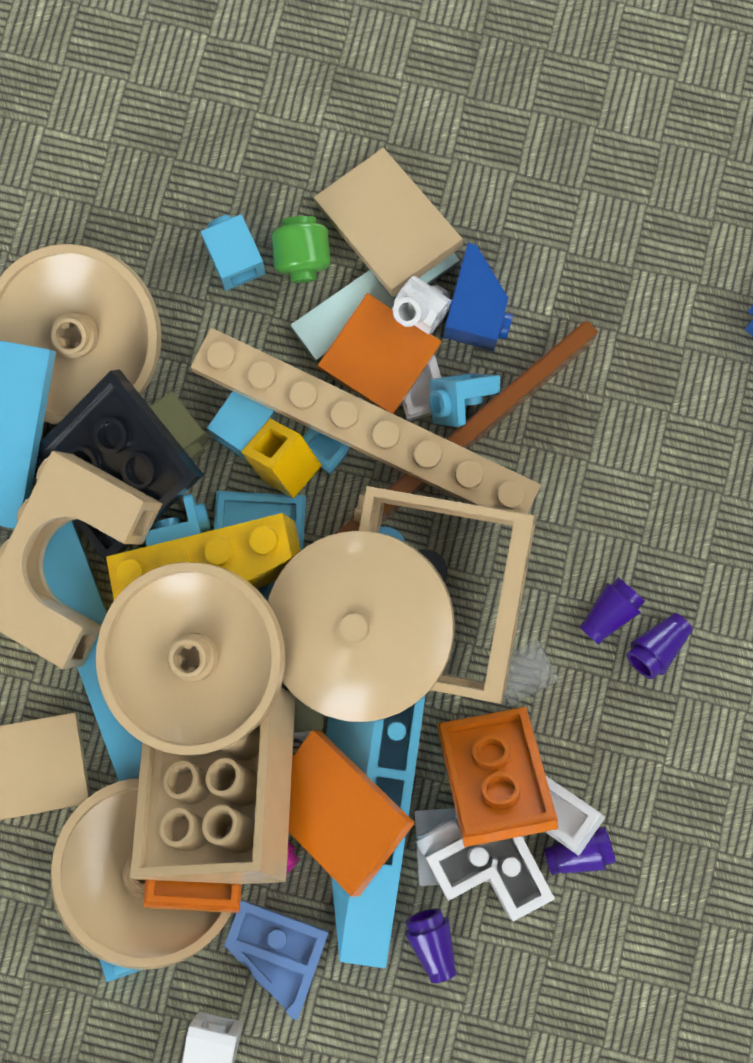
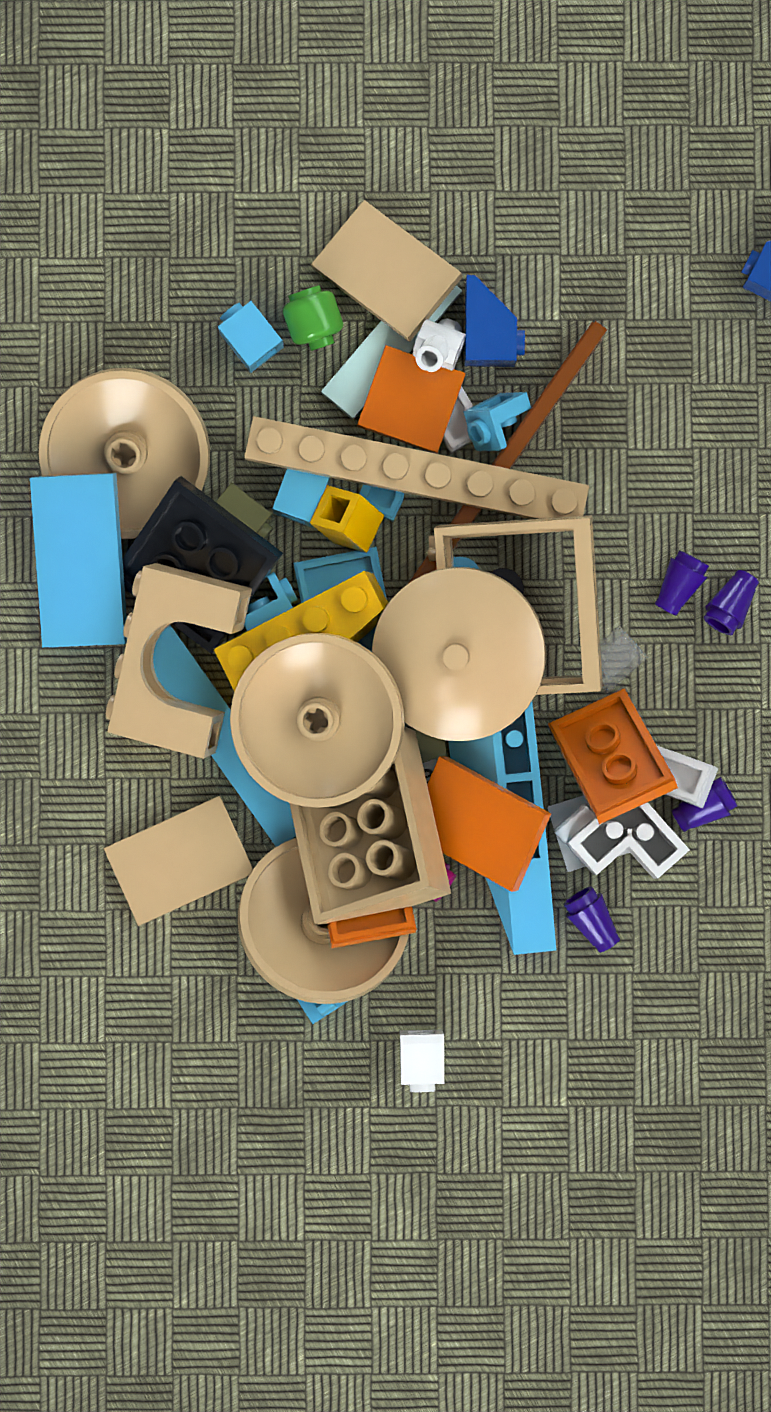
camera: 15 degrees left, 5 degrees up
(277, 952) = (457, 960): medium blue wing -> none

